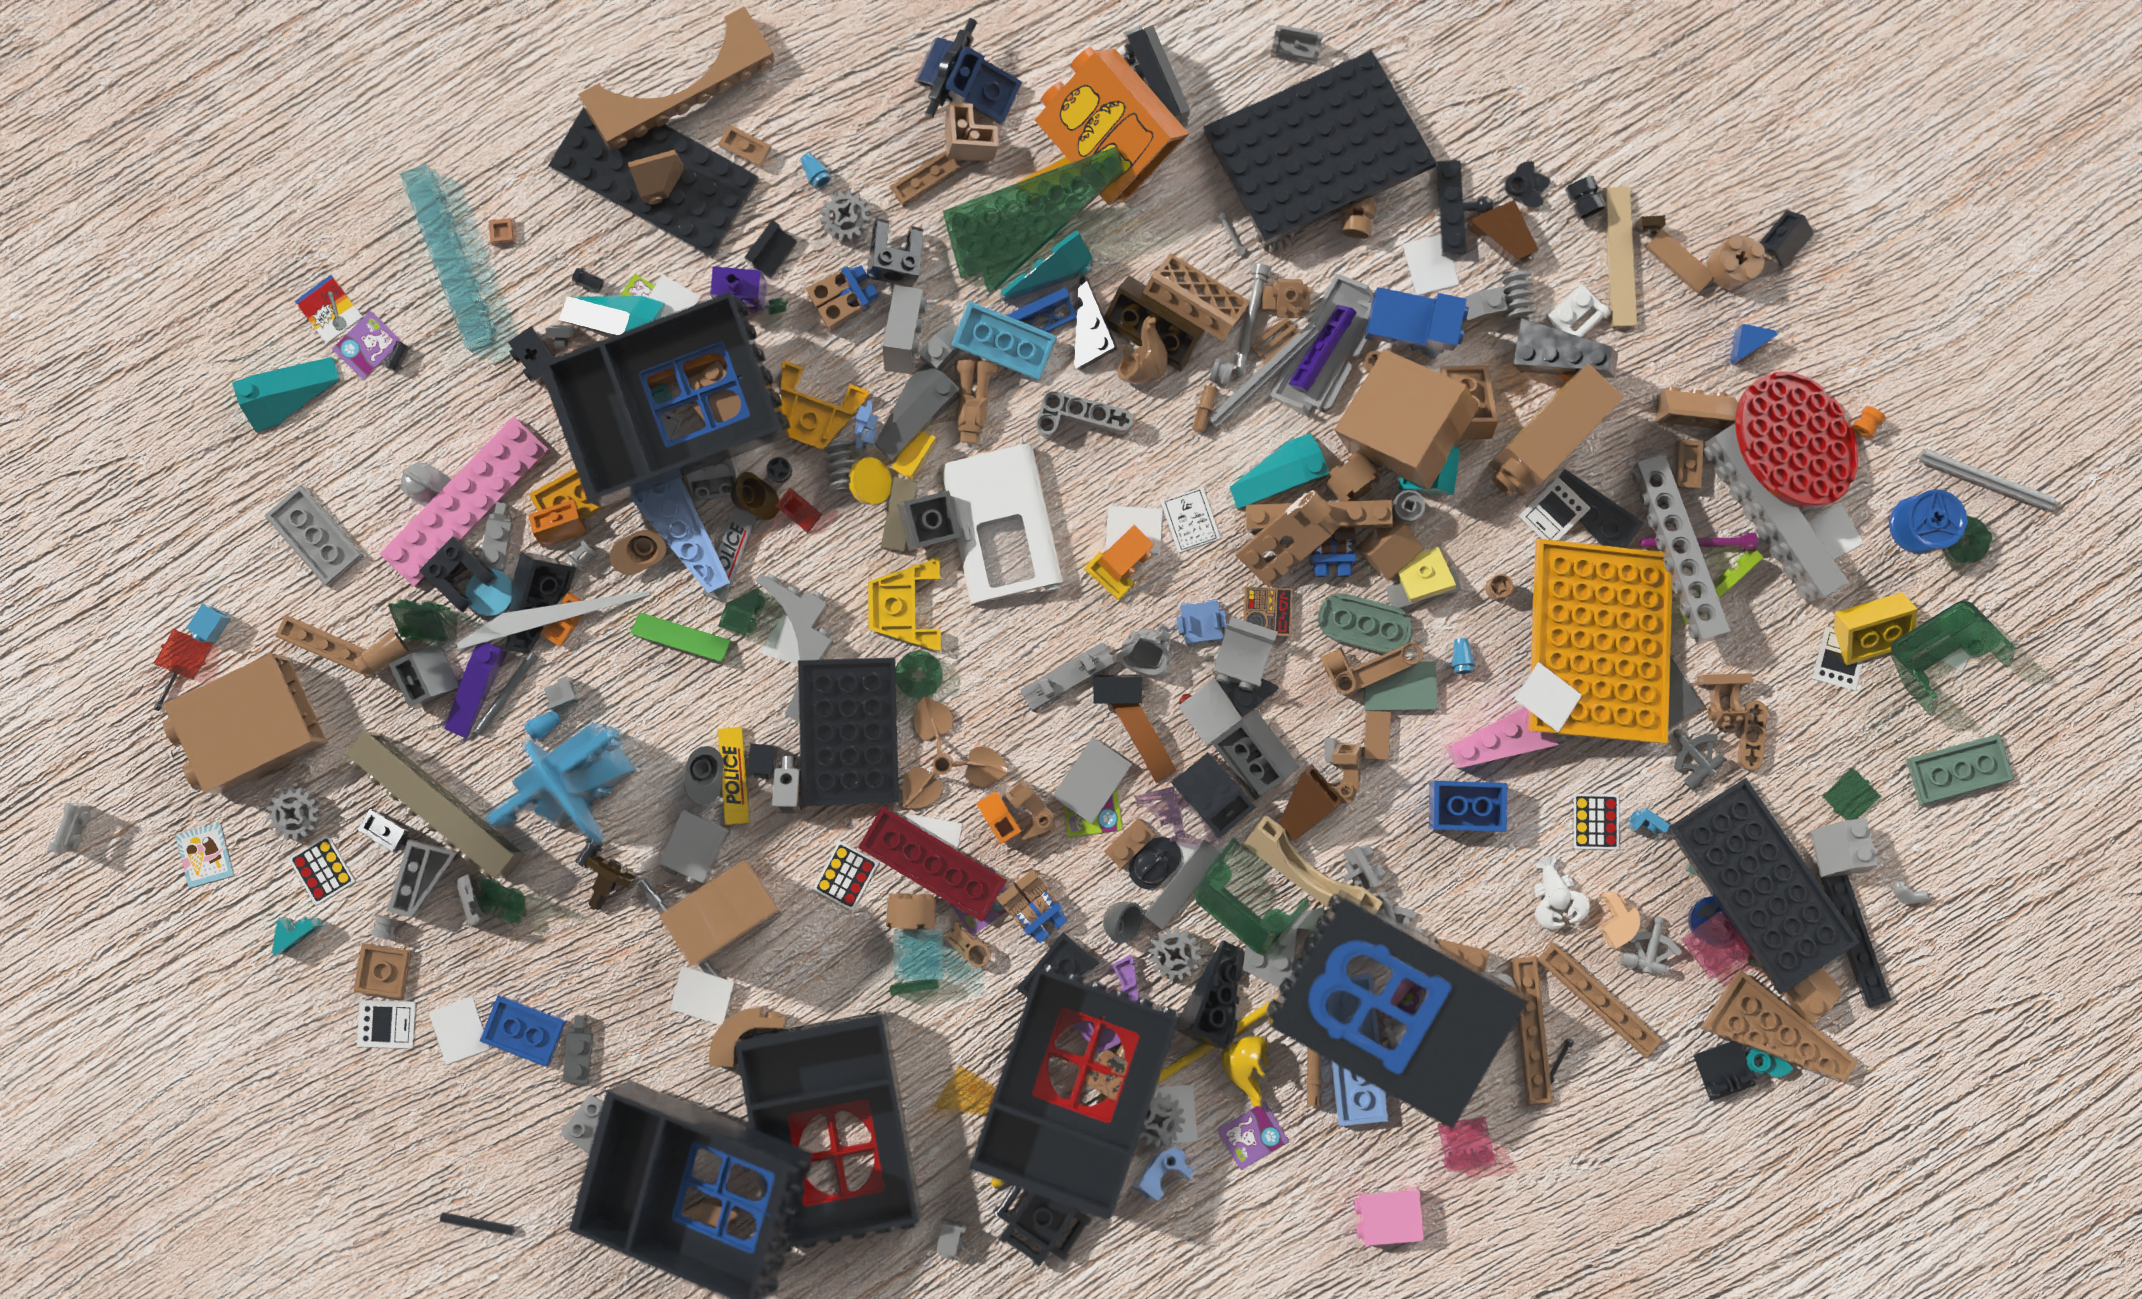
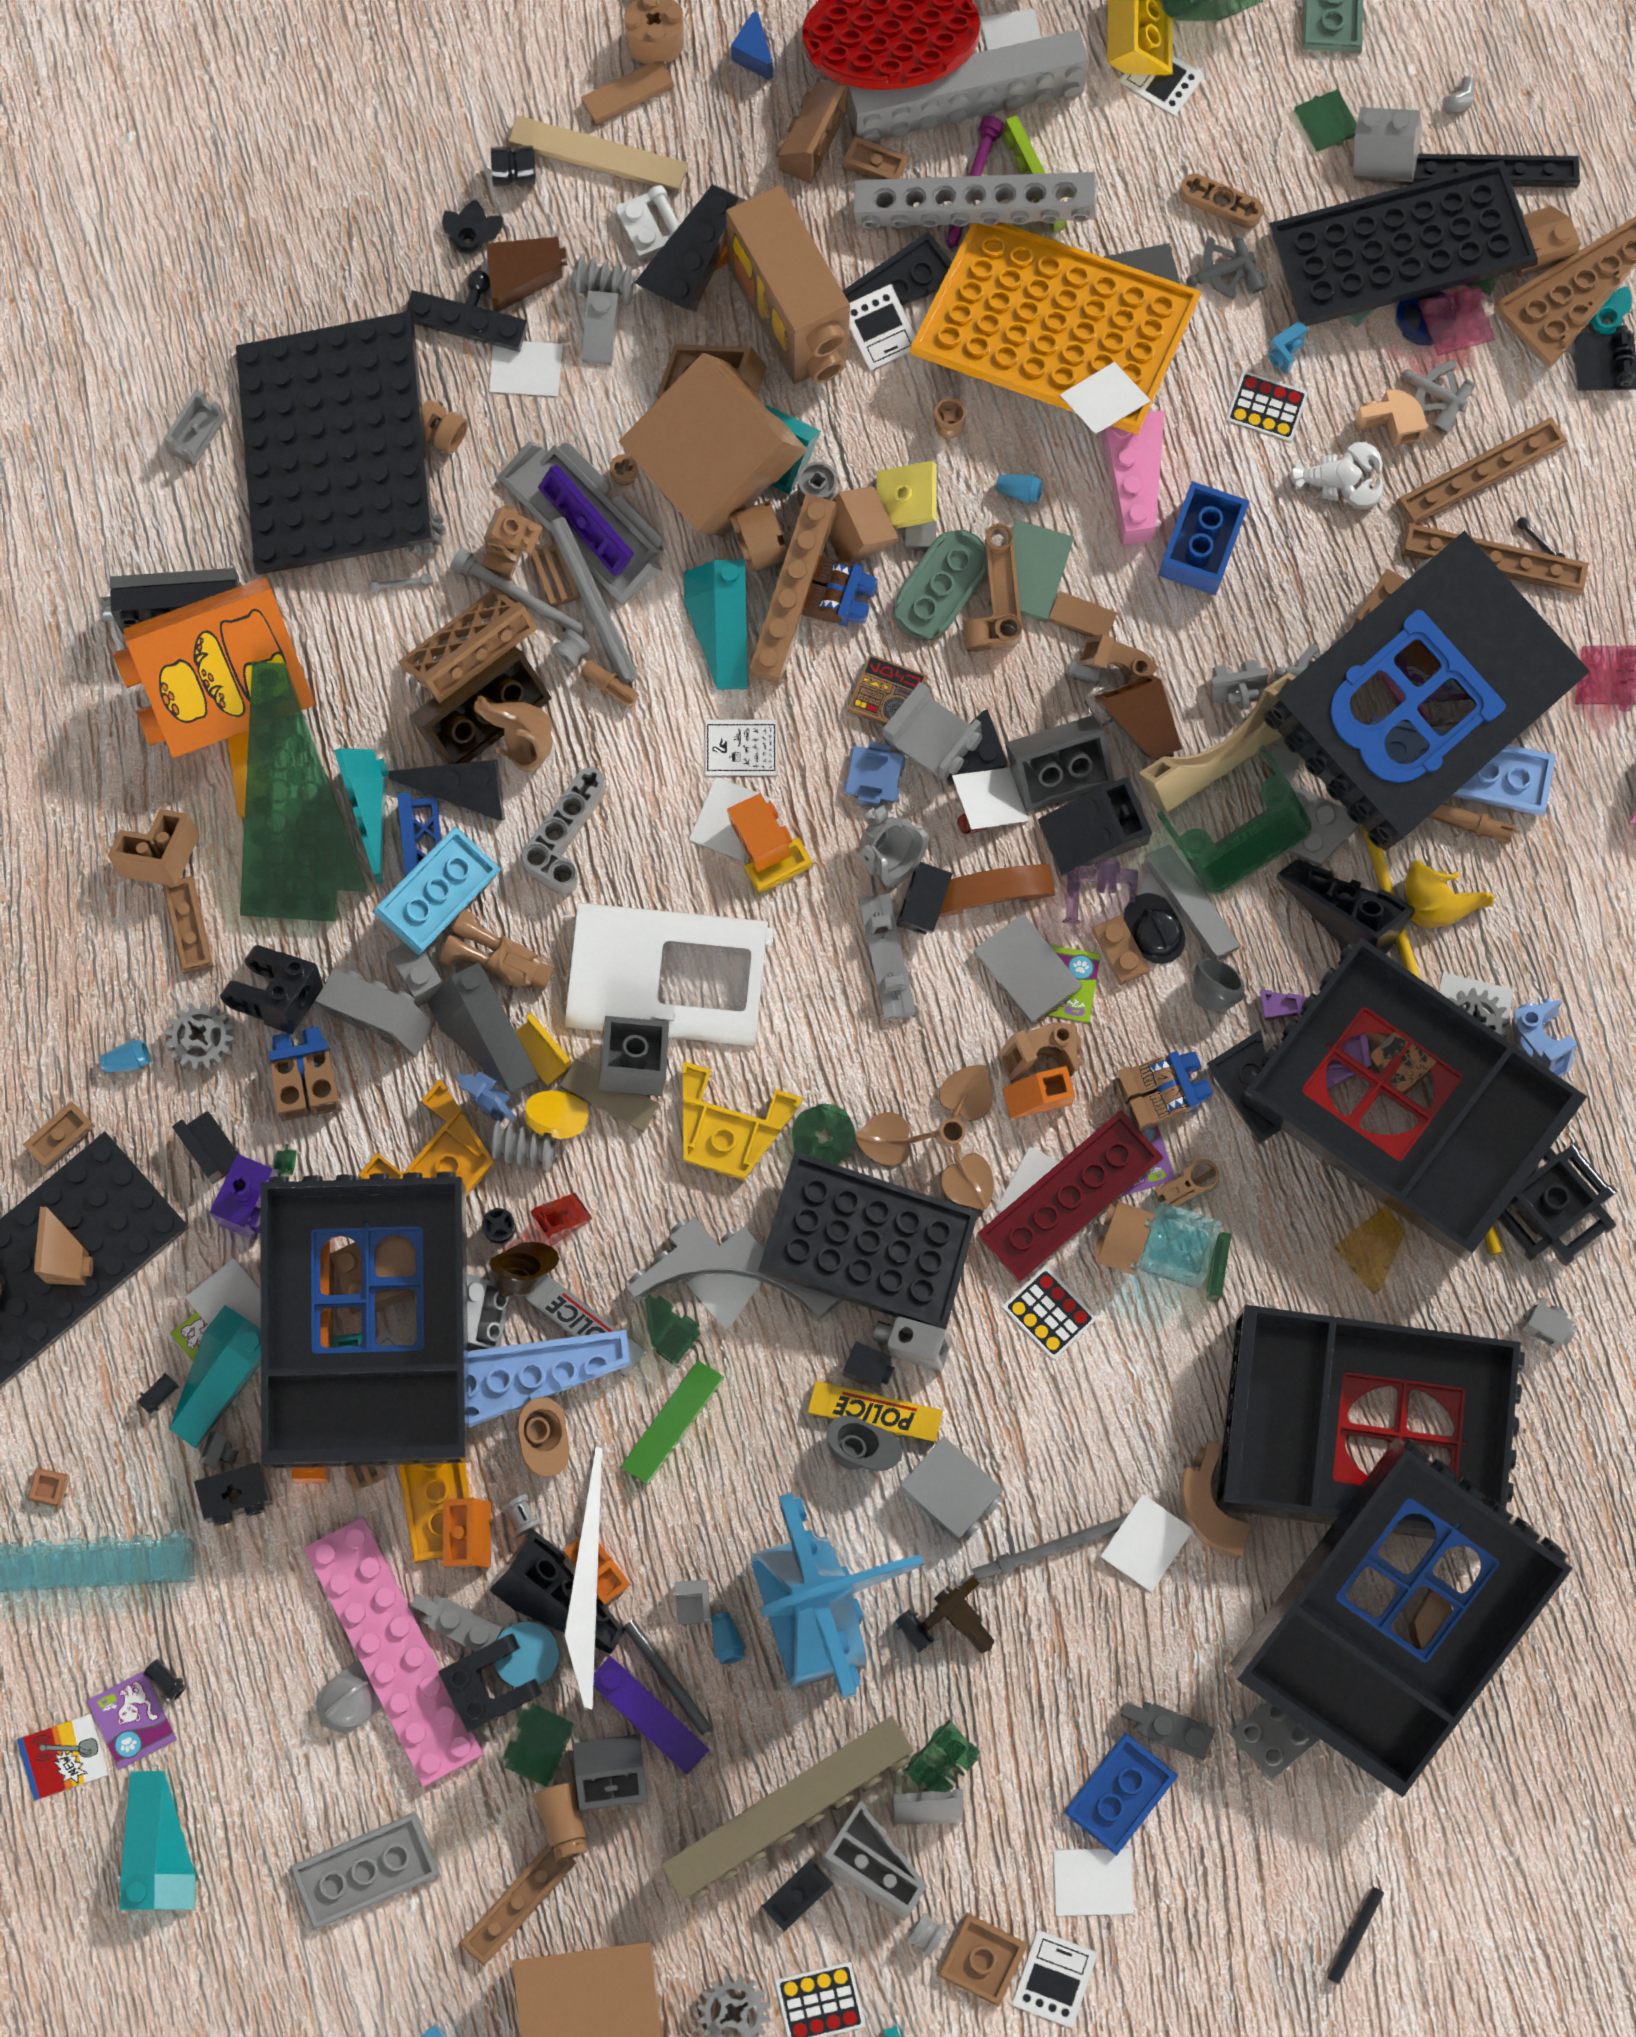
camera: 70 degrees left, 10 degrees down
(719, 914) = (1054, 1465): medium nougat tile -> none
(964, 76) = (79, 827): dark blue piece -> none
(1180, 943) = (1284, 947): light grey gear -> none
(1252, 1135) = (1526, 922): sticker -> none
(1305, 522) = (803, 599): medium nougat hinge -> none
(1417, 321) = (596, 395): blue brick -> none
(1650, 224) = (572, 107): dark brown plate -> none
(1725, 685) = (1153, 206): medium nougat tile -> none

